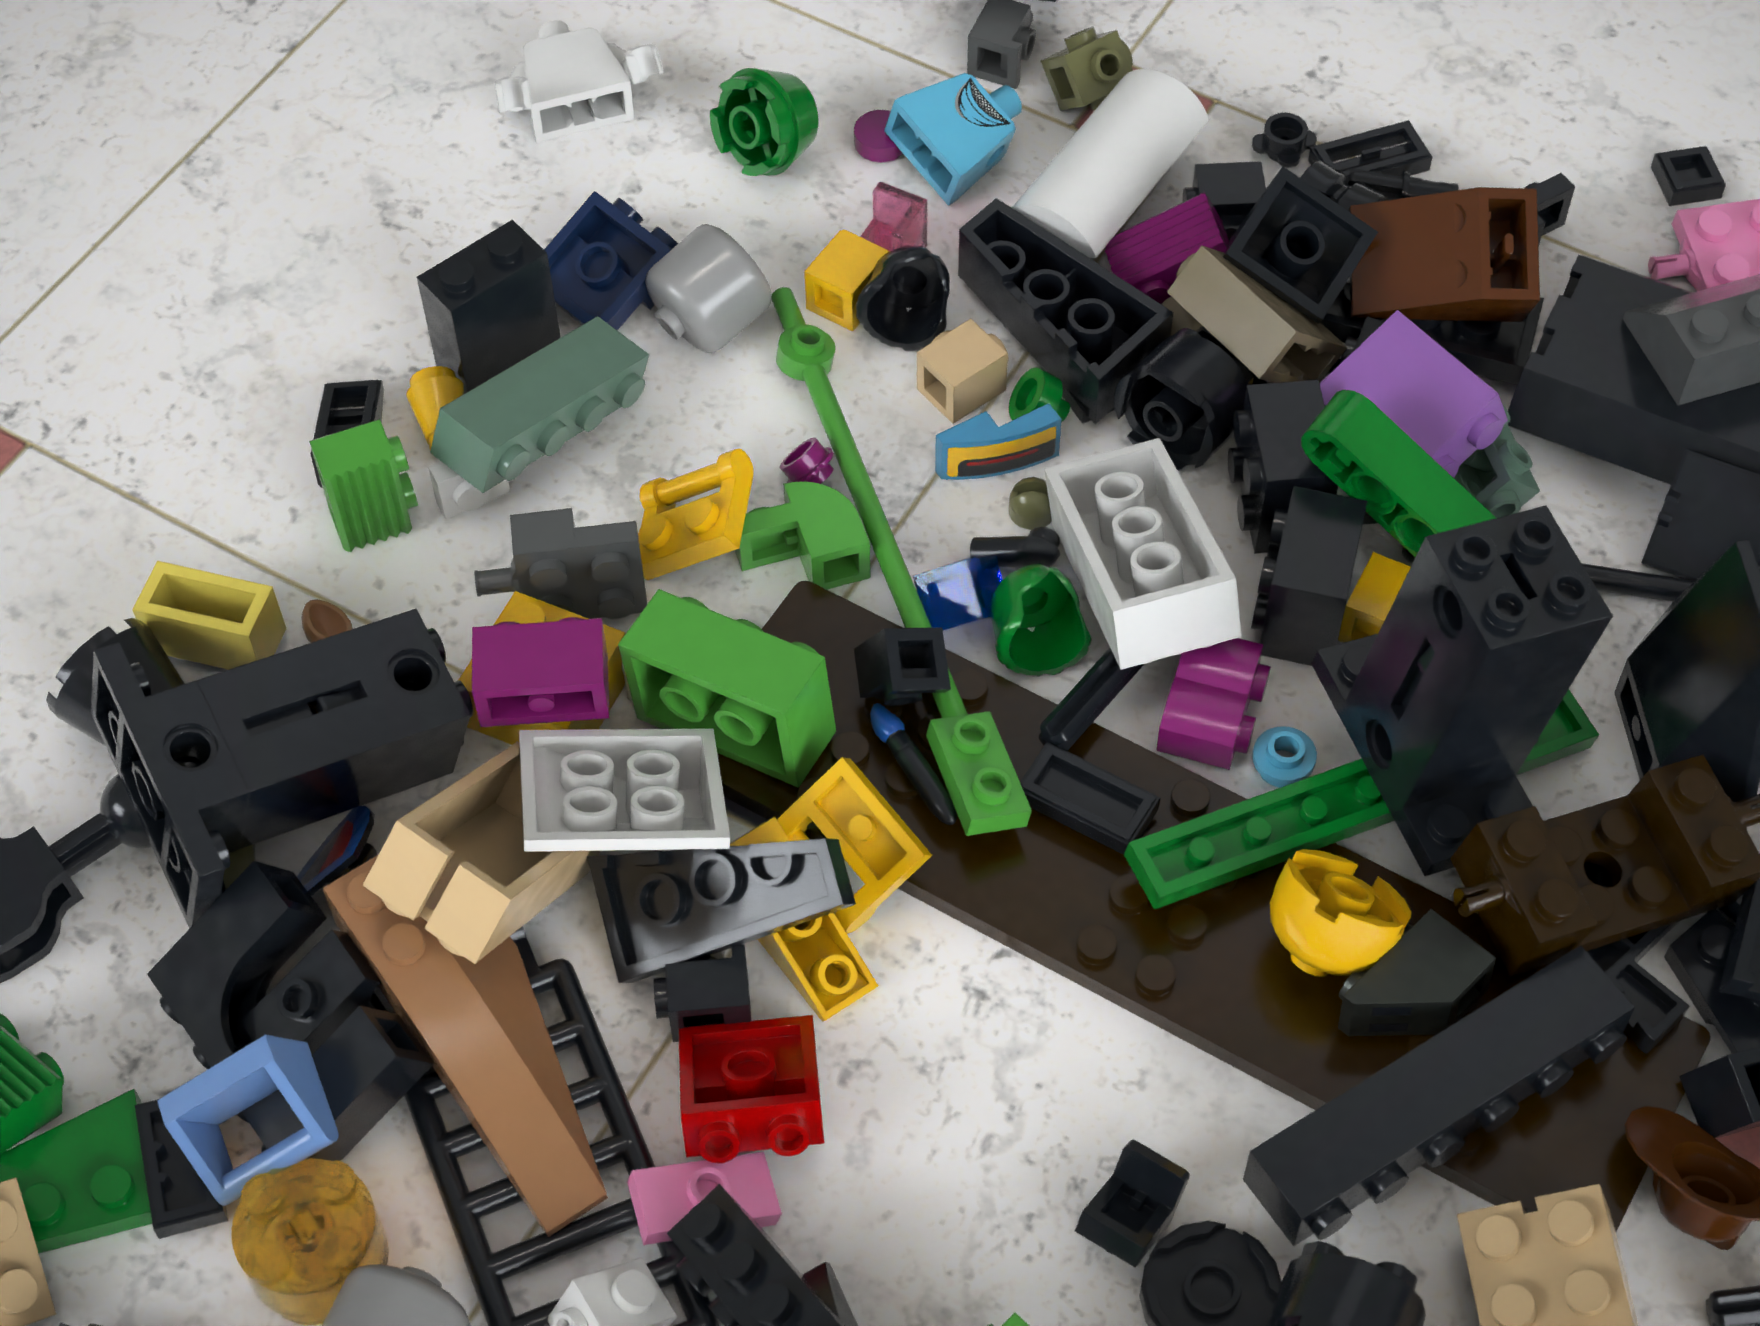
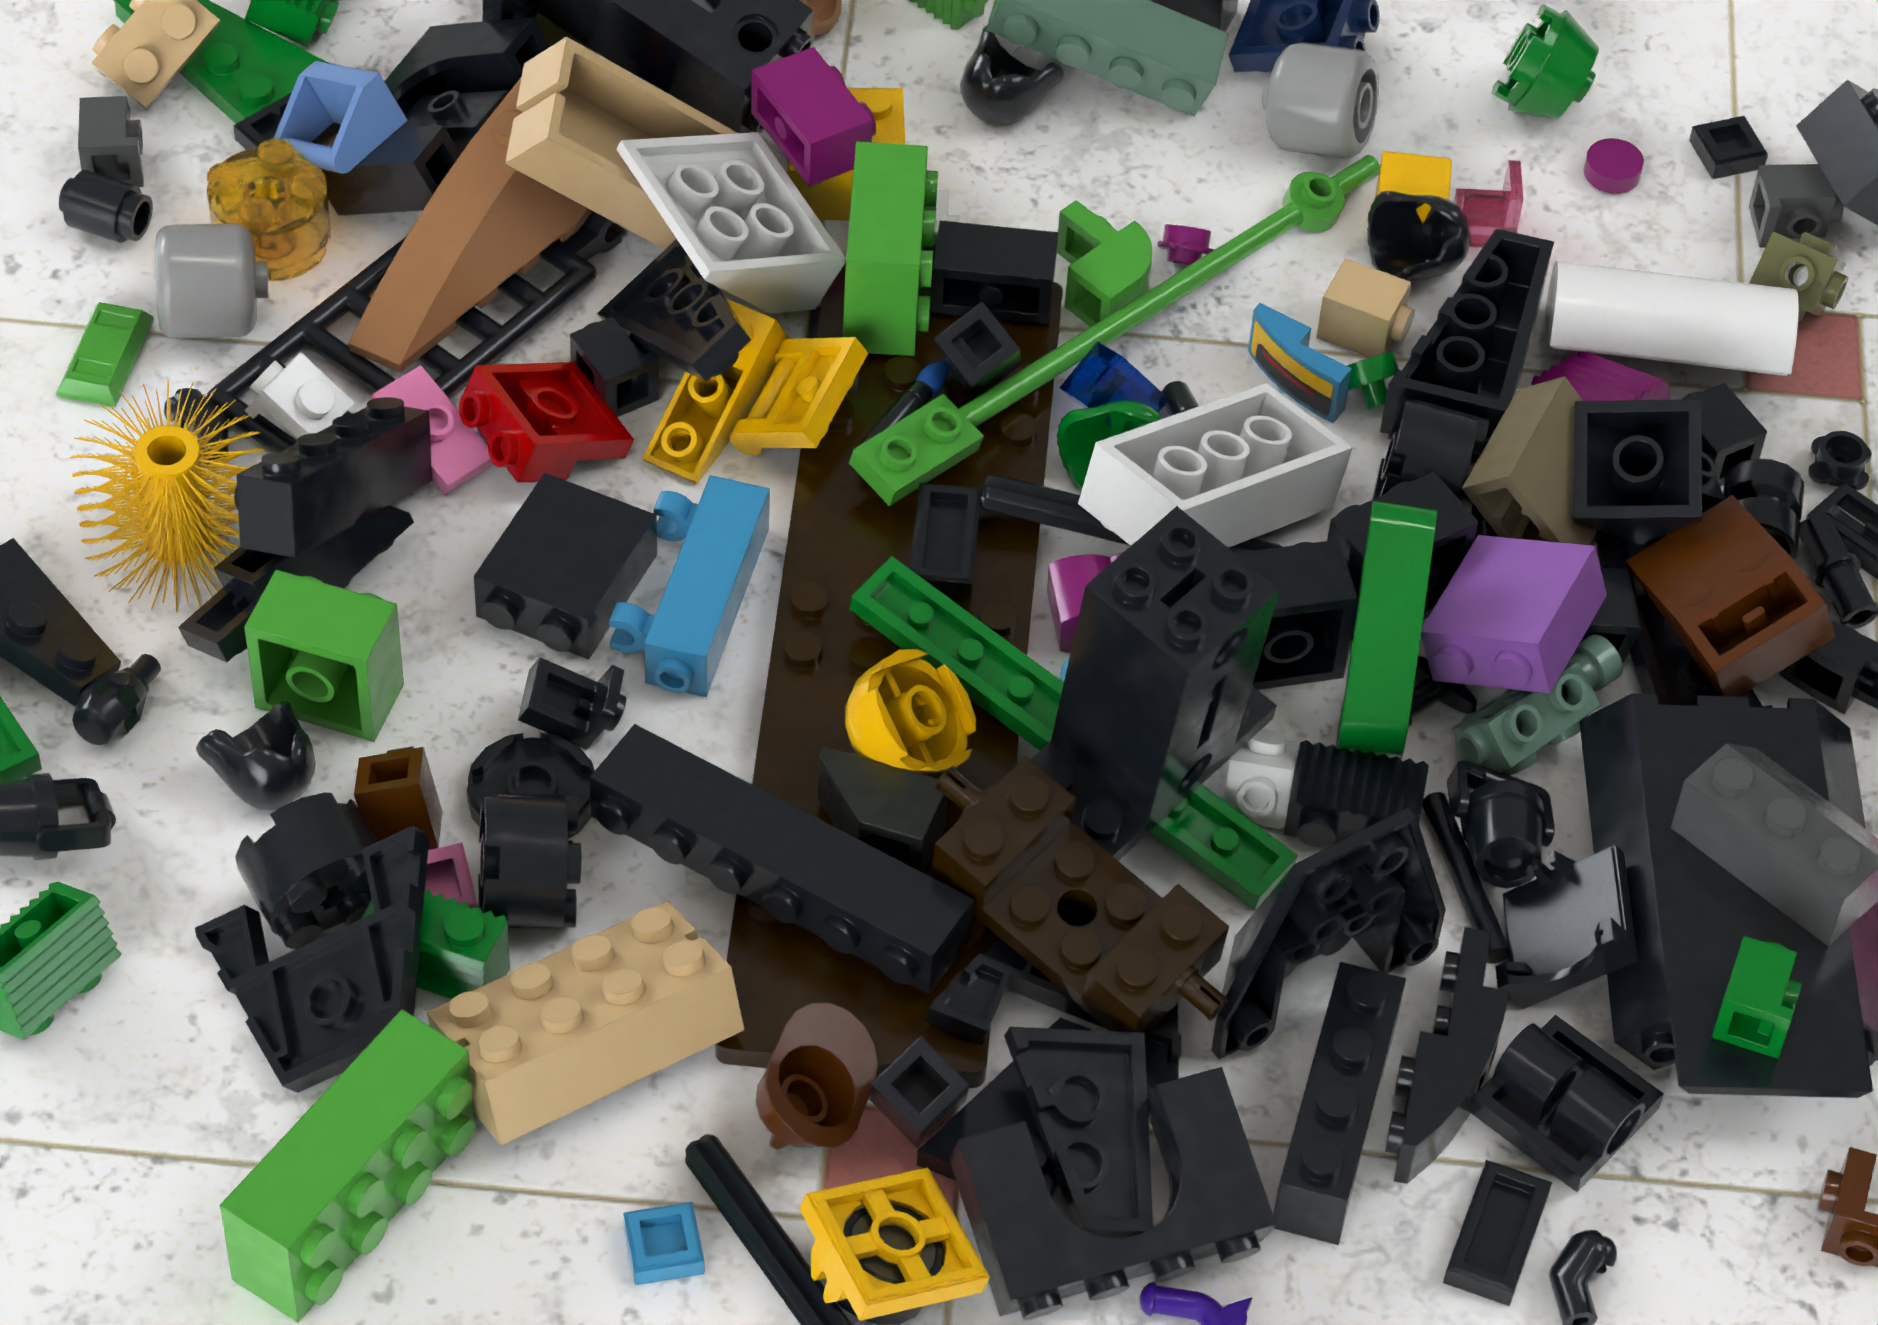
camera: 60 degrees right, 5 degrees down
(538, 493) = (1002, 87): none -> black hair
(577, 569) = (951, 117): dark grey plate -> none
(700, 529) = (1069, 181): yellow plate -> none
(794, 598) = (996, 266): none -> black brick
(901, 56) = (1728, 147): none -> black tile
(952, 1144) = (565, 565): none -> black brick
(954, 131) = (1643, 206): medium azure torso -> none
(1038, 1028) = (704, 588): none -> dark azure brick
(1372, 597) = (1301, 683): yellow panel -> none
(1600, 522) = (1501, 822): none -> black piece

